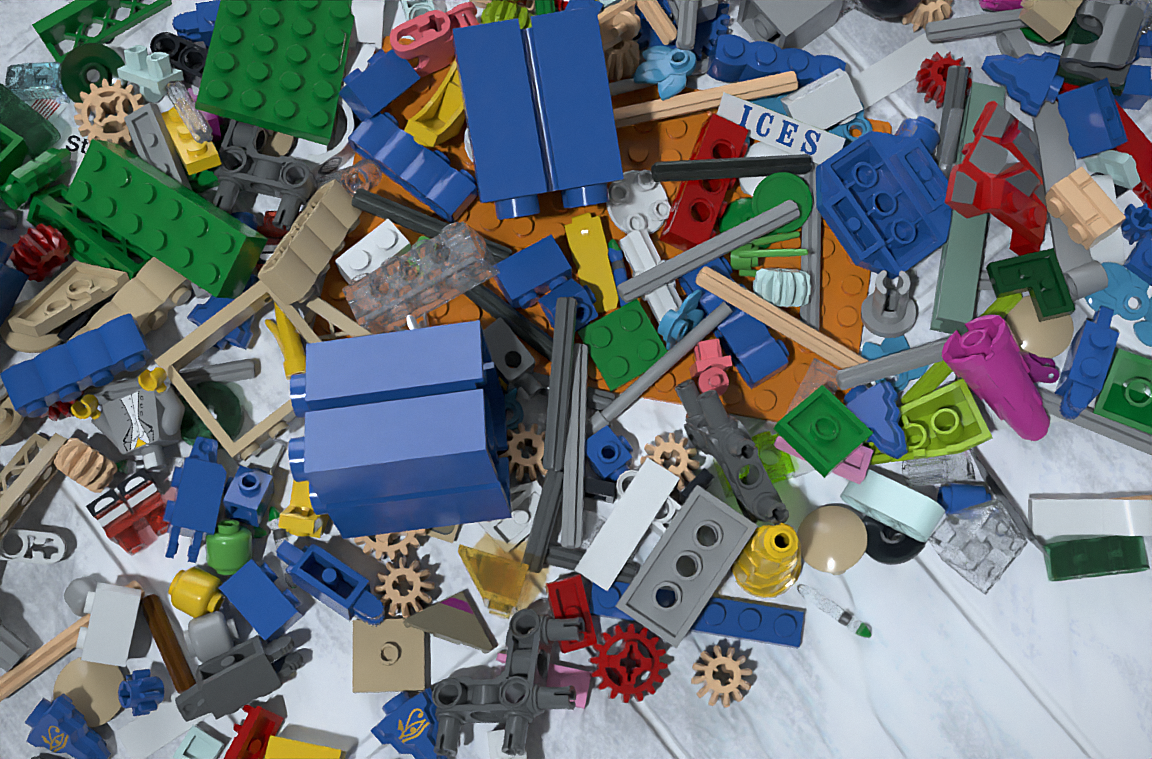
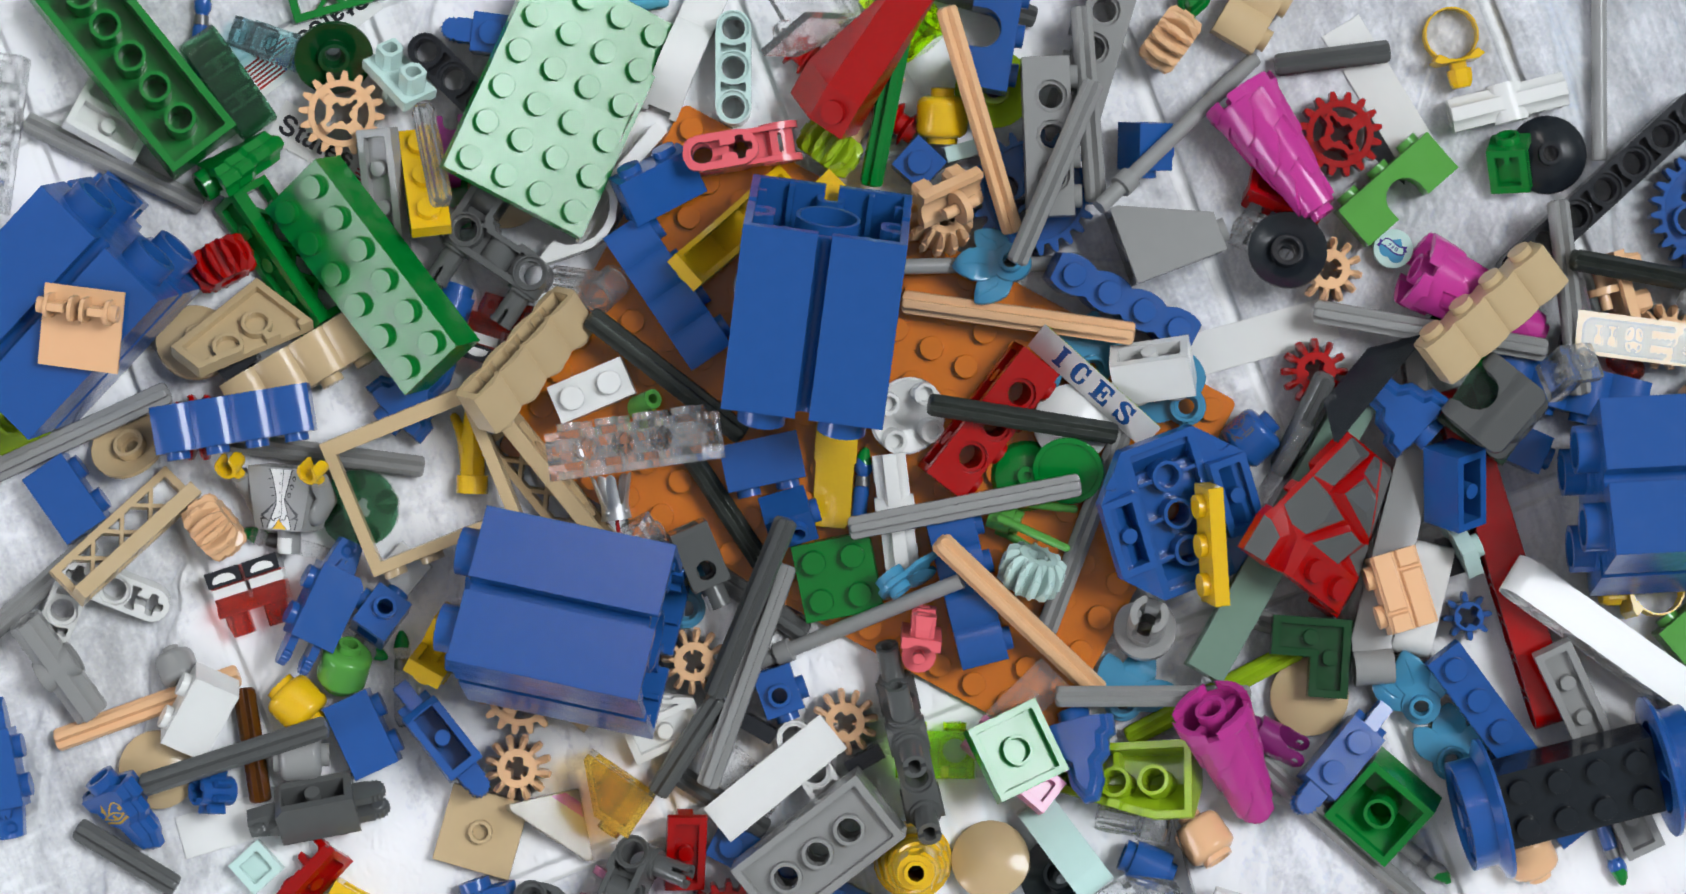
camera: 20 degrees right, 15 degrees up
(149, 651) = (234, 756): none -> dark grey axle
(920, 215) = (1211, 544): none -> yellow plate
(990, 62) = (1364, 383): none -> black sticker
(1003, 462) = (1204, 839): none -> light nougat head

